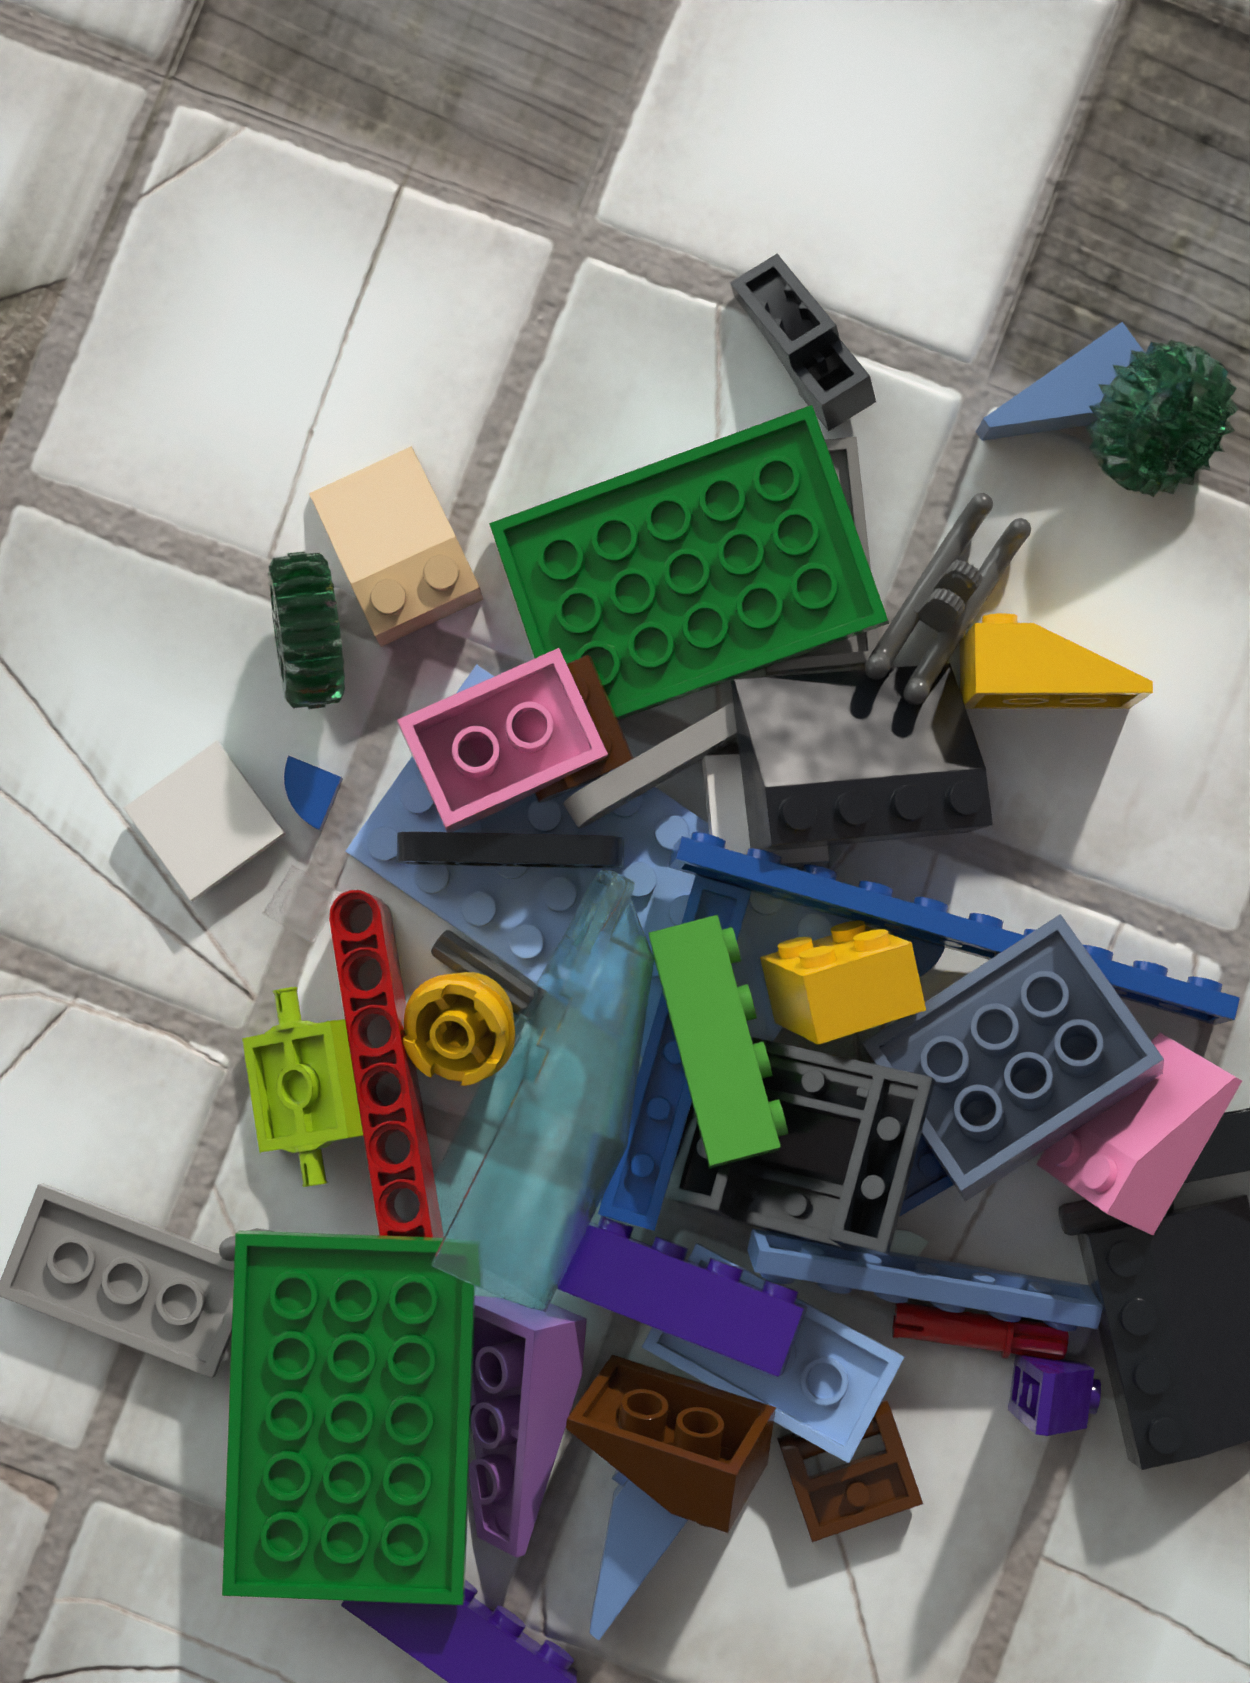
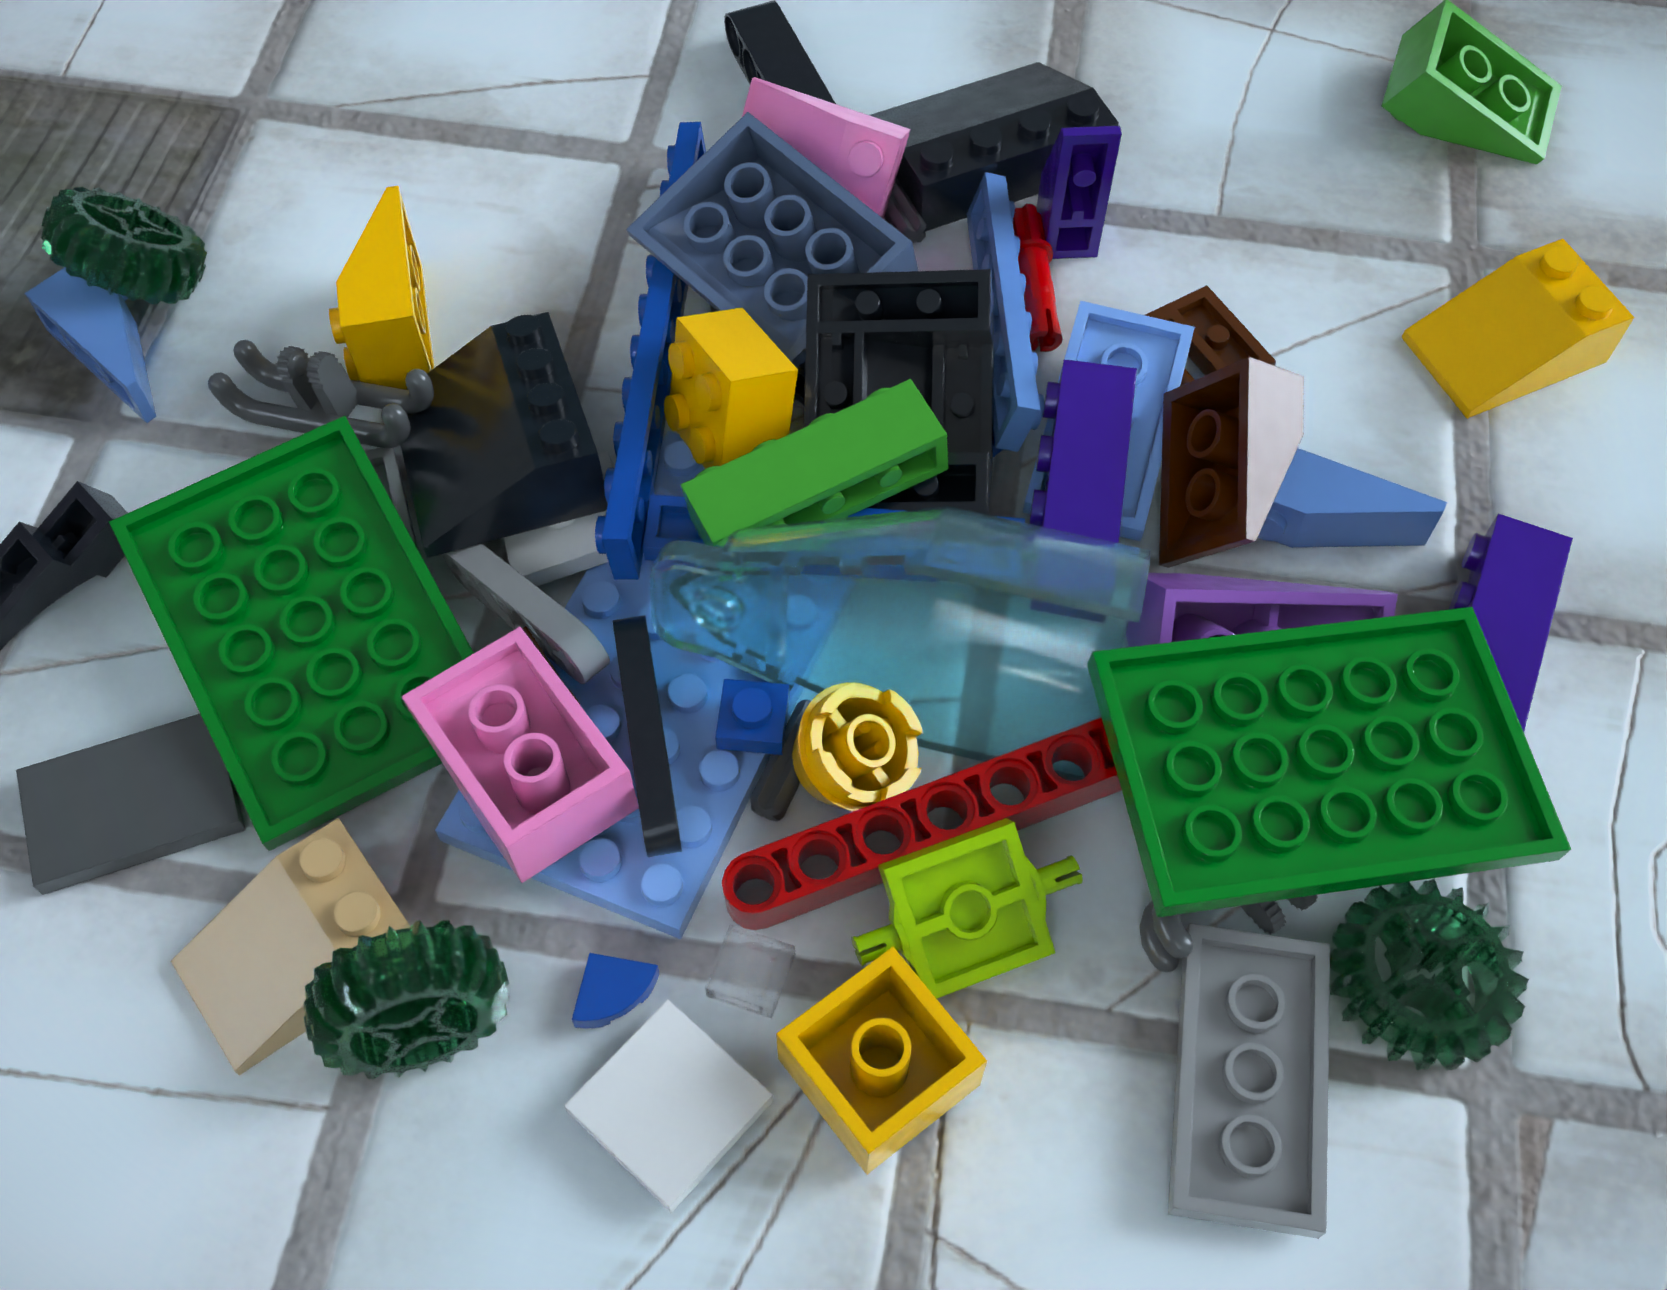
camera: 100 degrees left, 25 degrees down
(169, 1422) = (1427, 933): none -> clear green gear
(192, 987) = (880, 1059): none -> yellow brick
(514, 944) = (752, 716): none -> blue plate
(561, 411) = (125, 803): none -> dark grey tile

